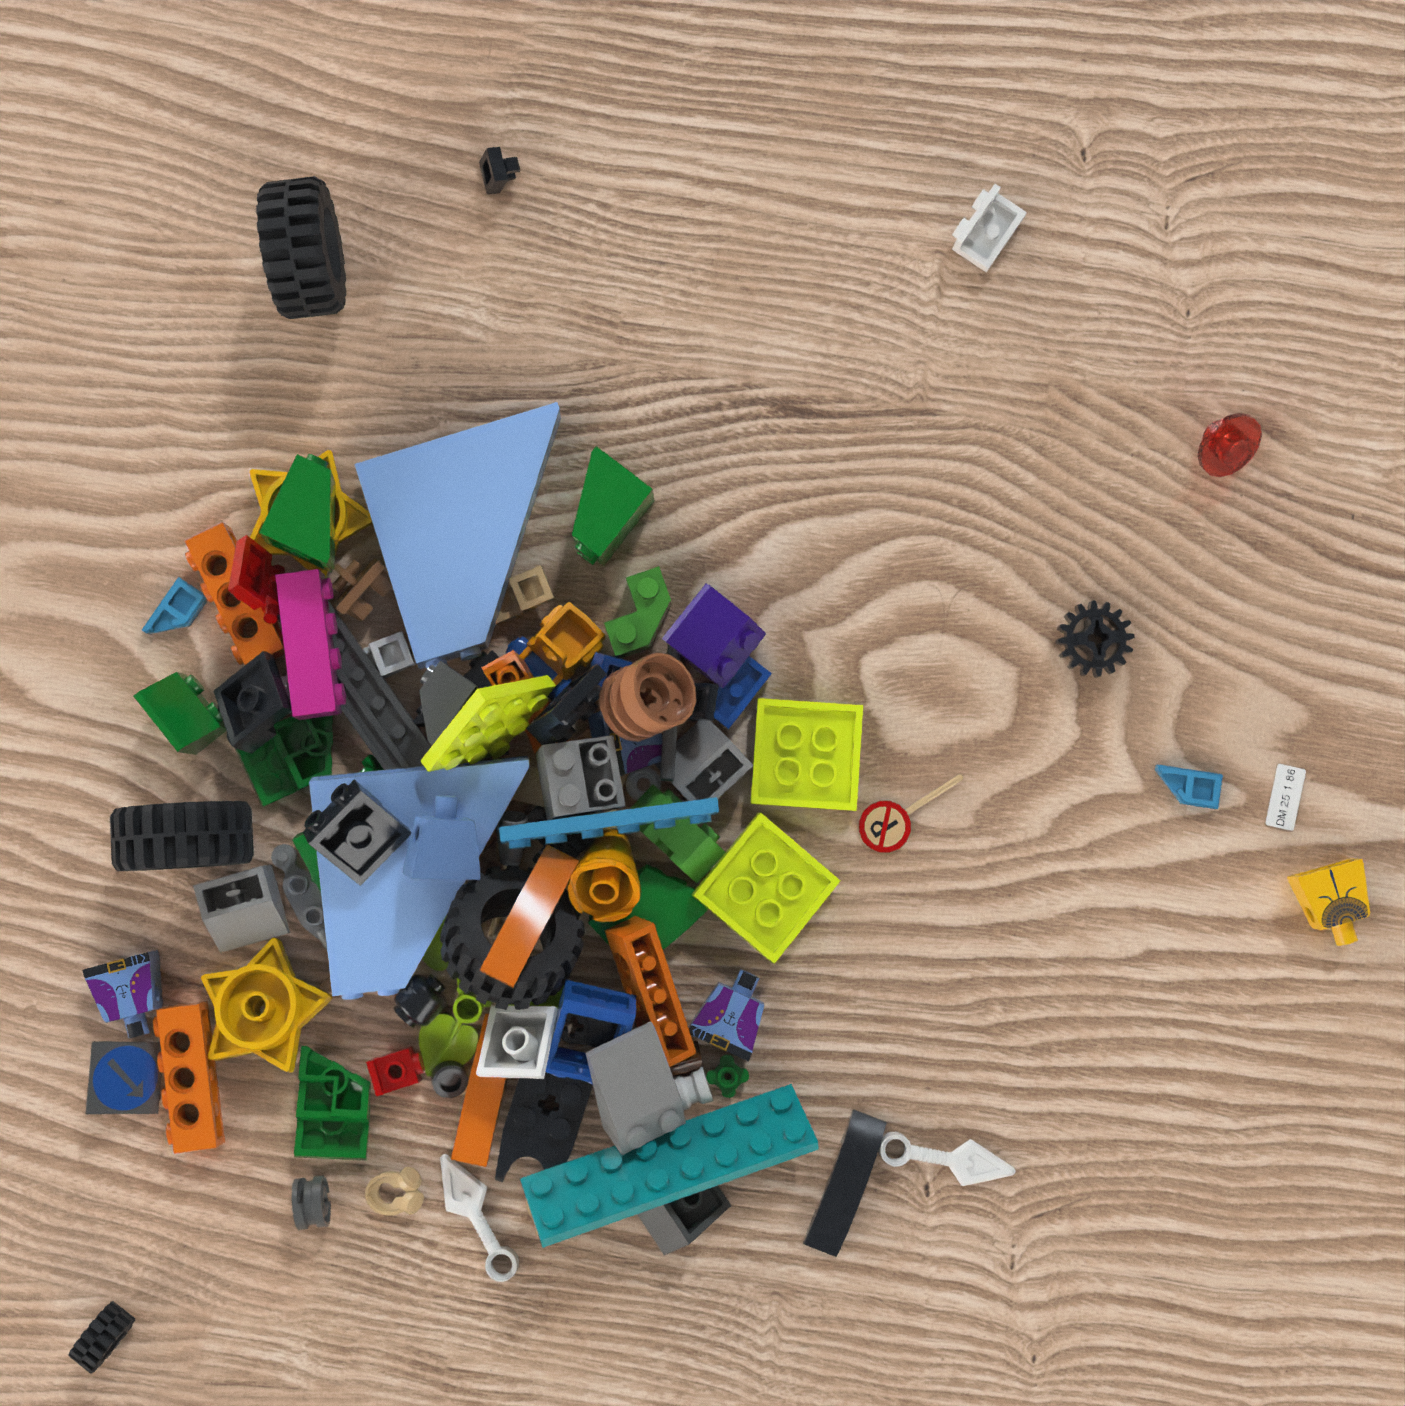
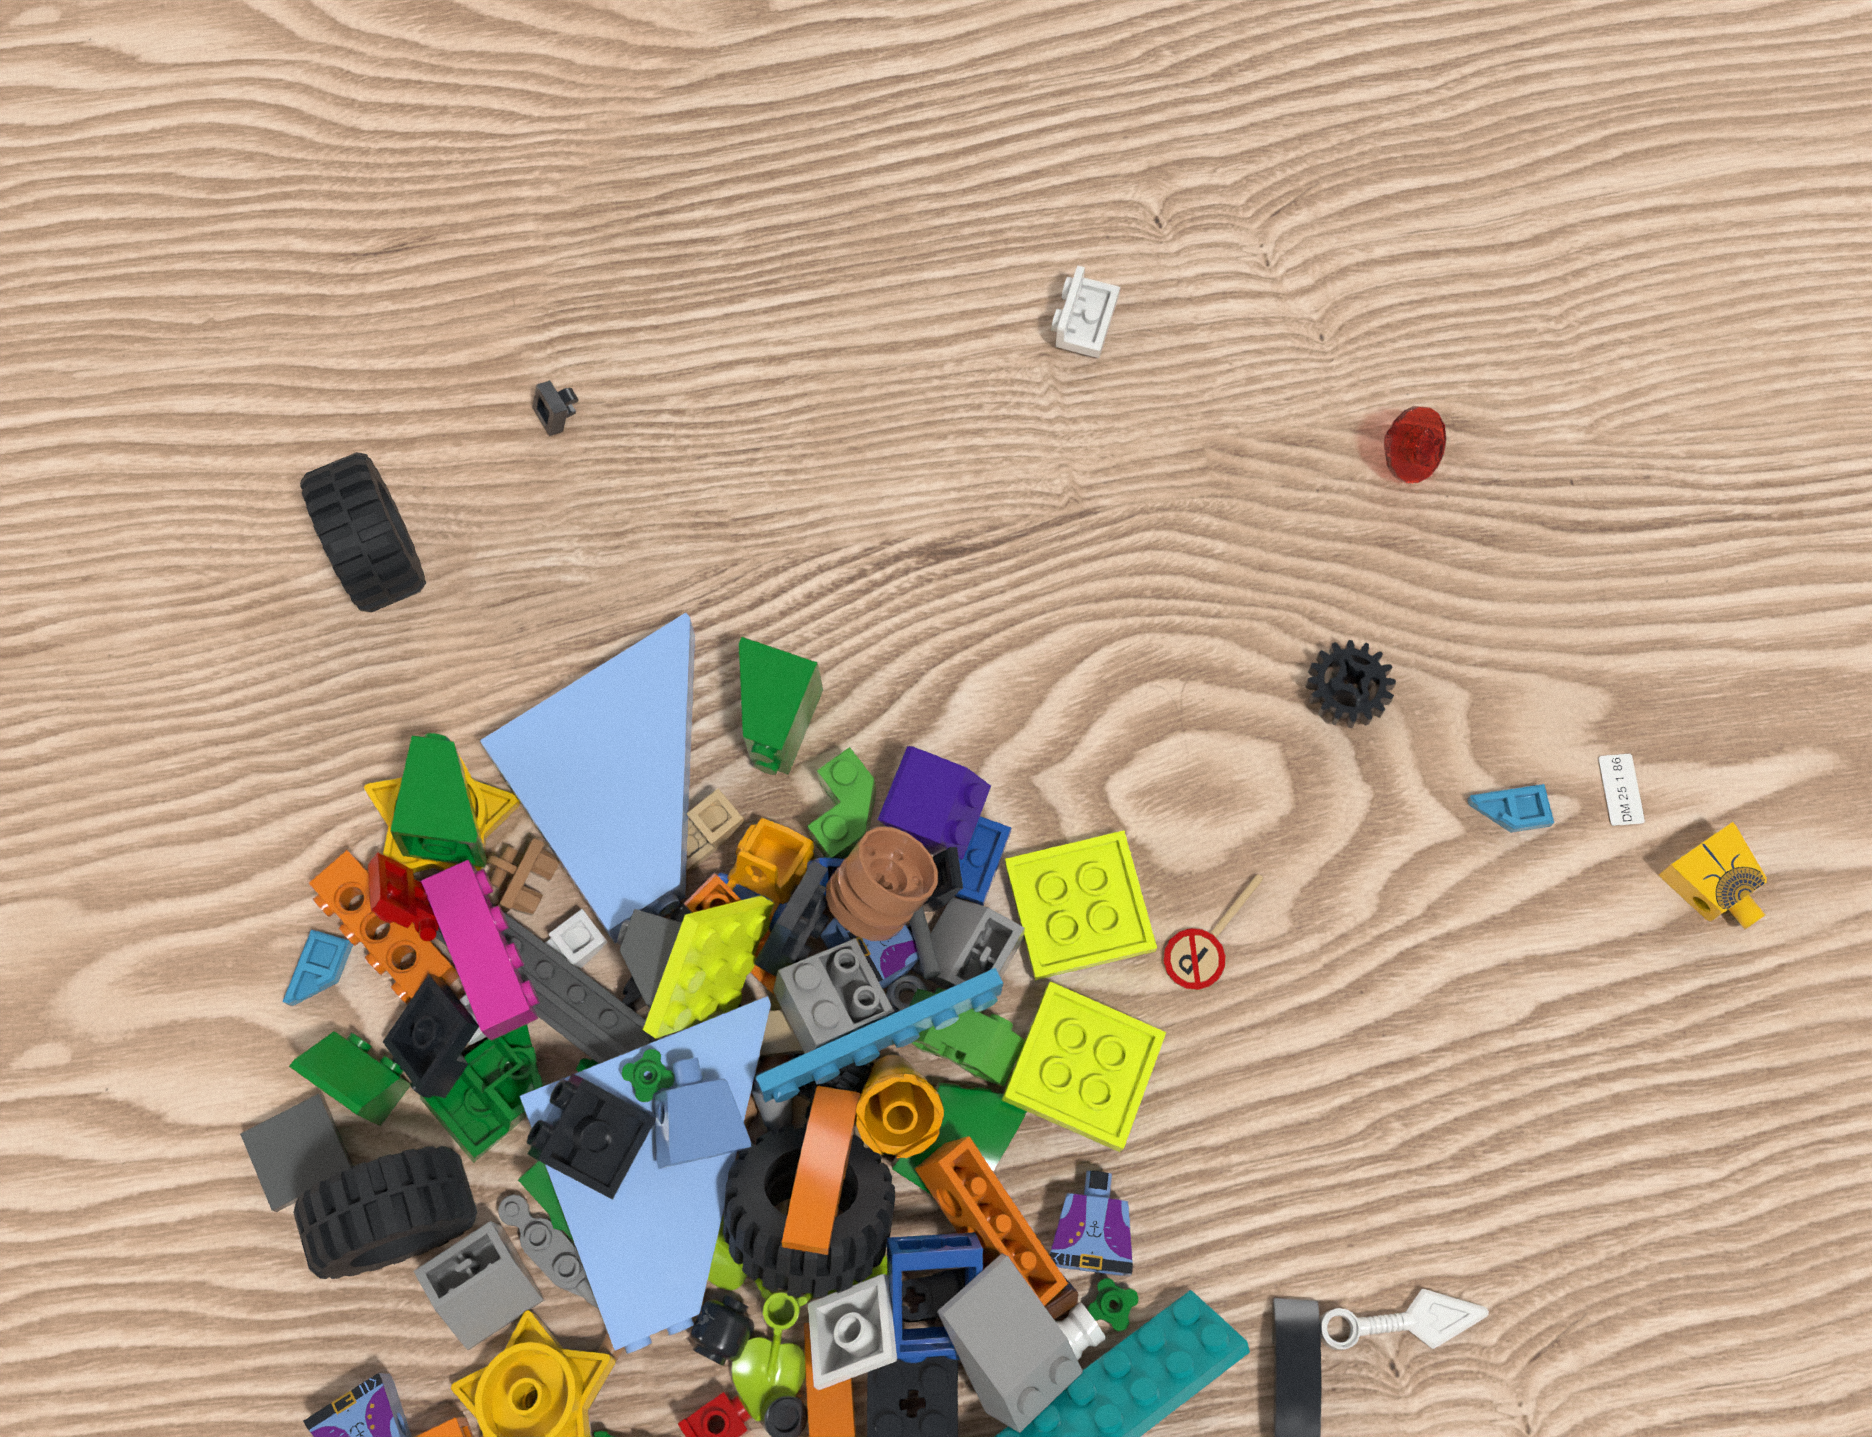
camera: 15 degrees left, 15 degrees down
(125, 757) = (296, 1151): none -> dark grey tile
(417, 787) = (635, 1074): none -> green plate

